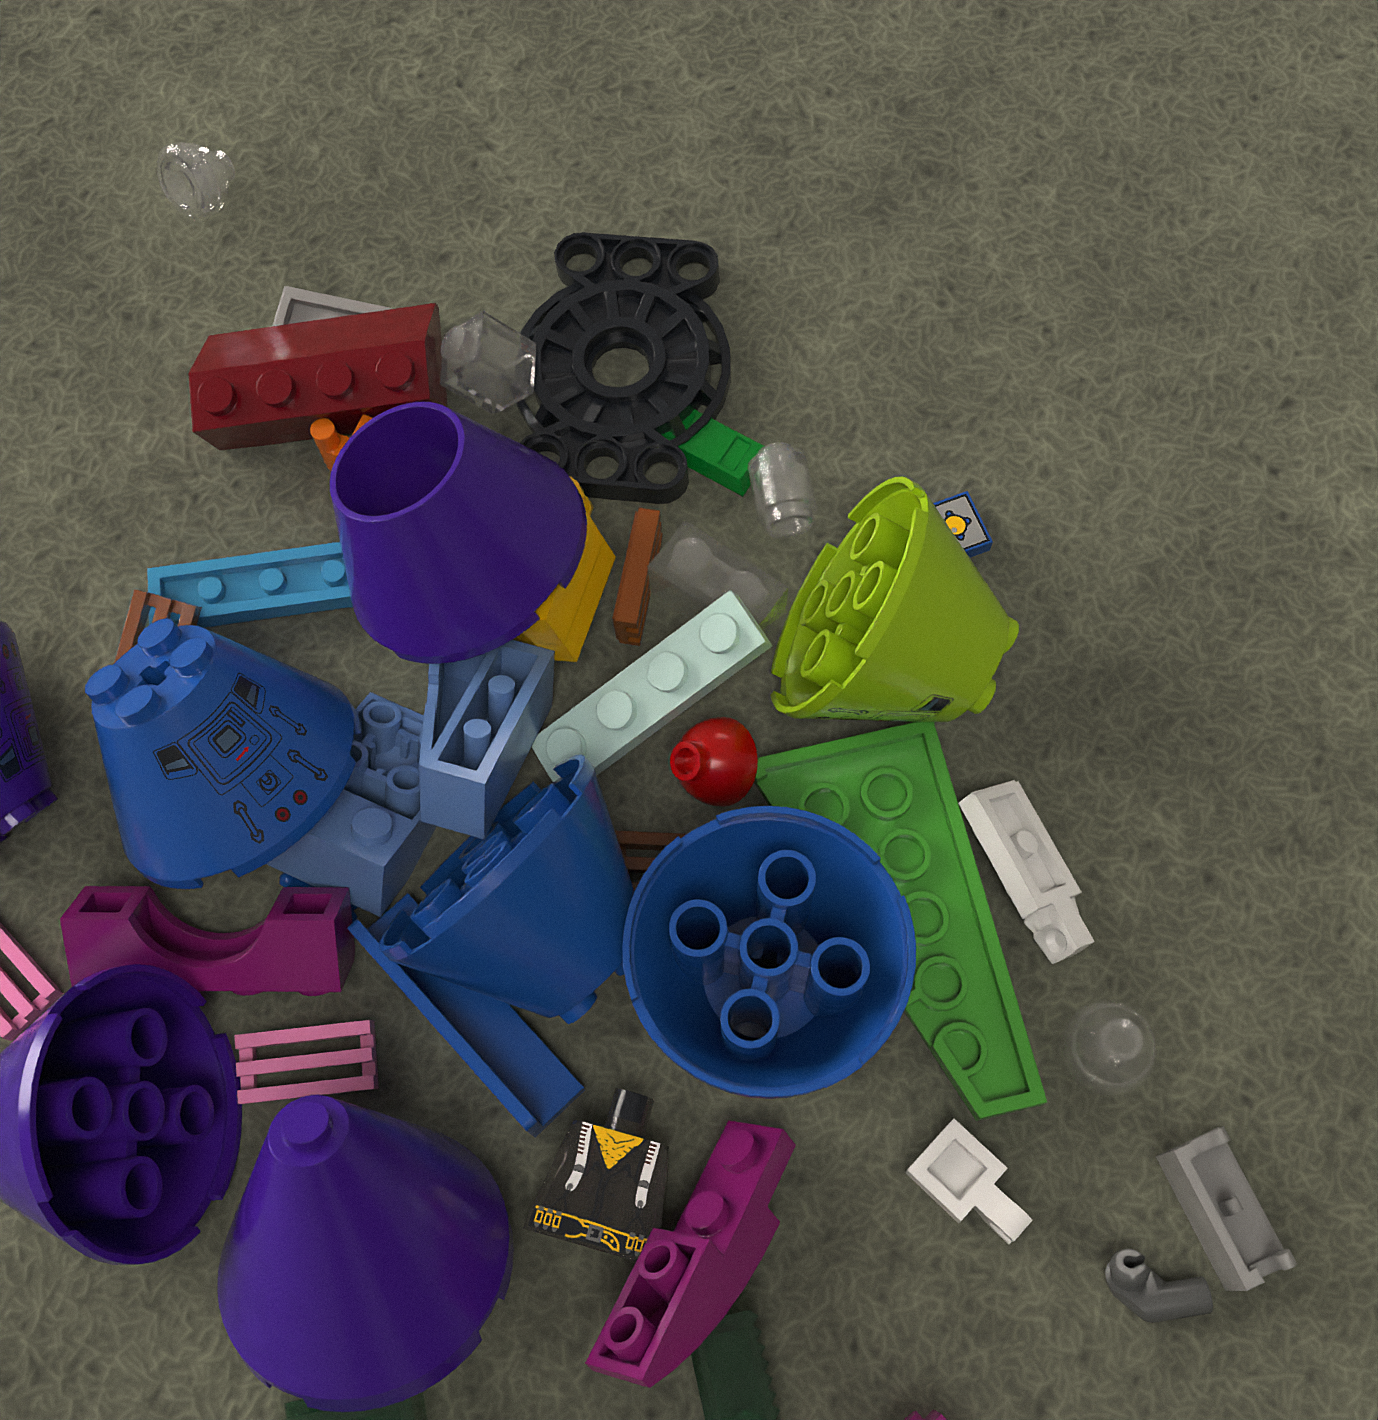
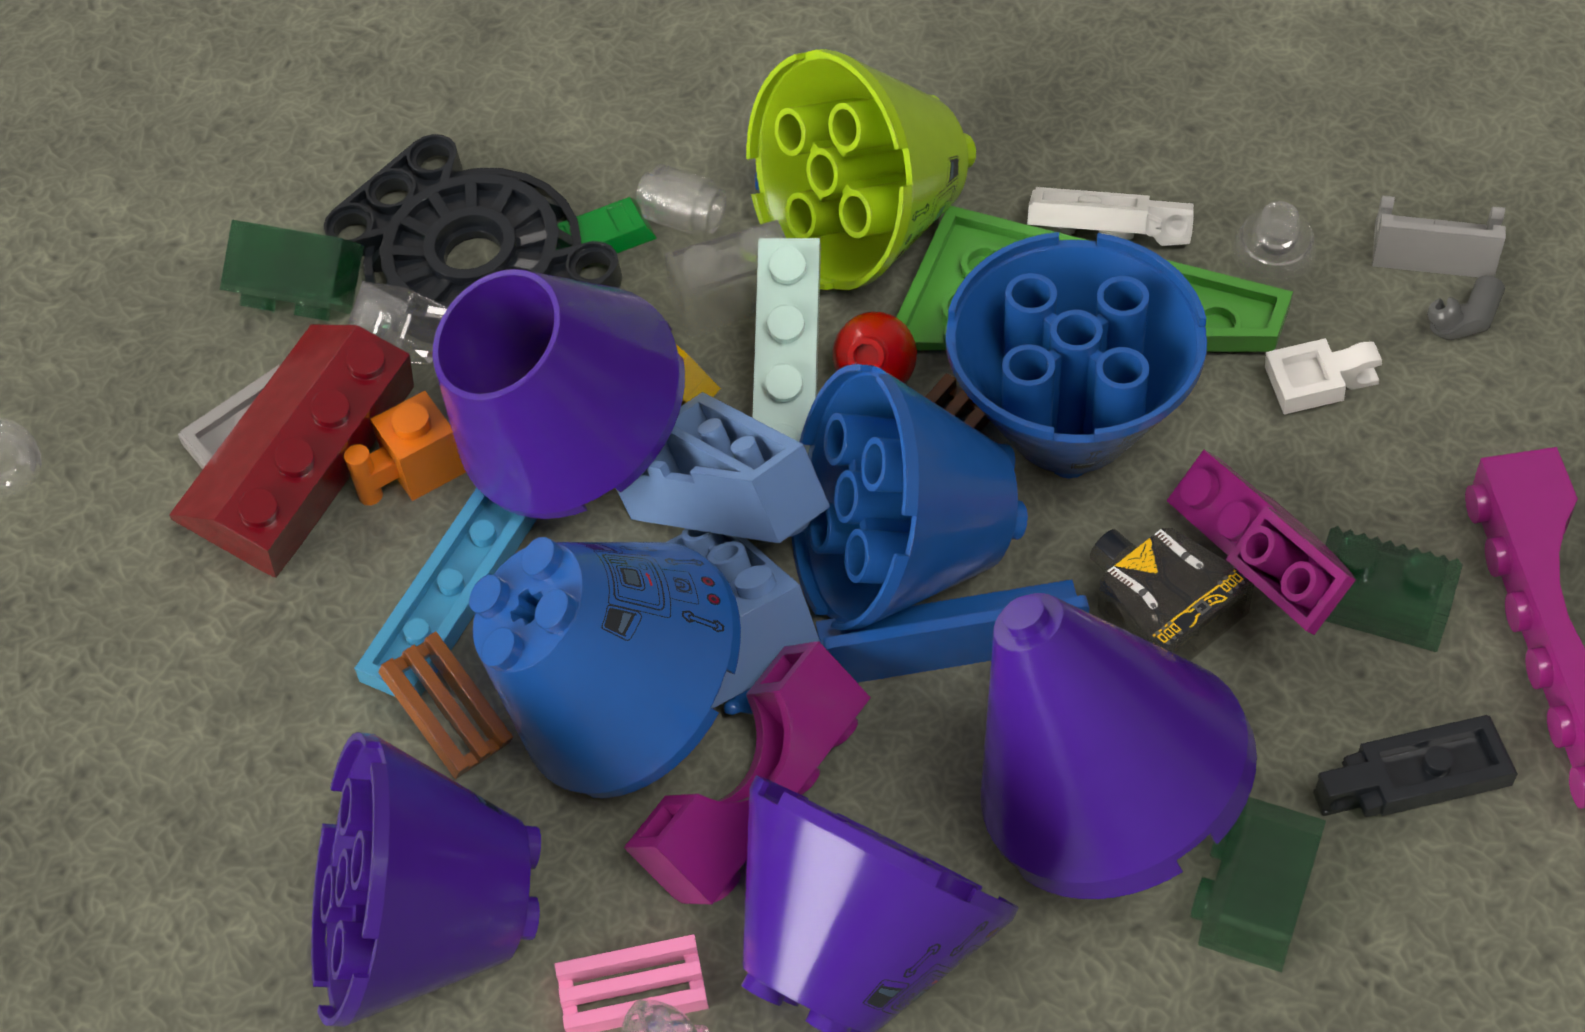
camera: 55 degrees left, 15 degrees down
(249, 1067) = (928, 726): bright pink tile -> none
(495, 247) = (292, 268): none -> clear green brick
(634, 586) = (689, 330): dark orange tile -> none

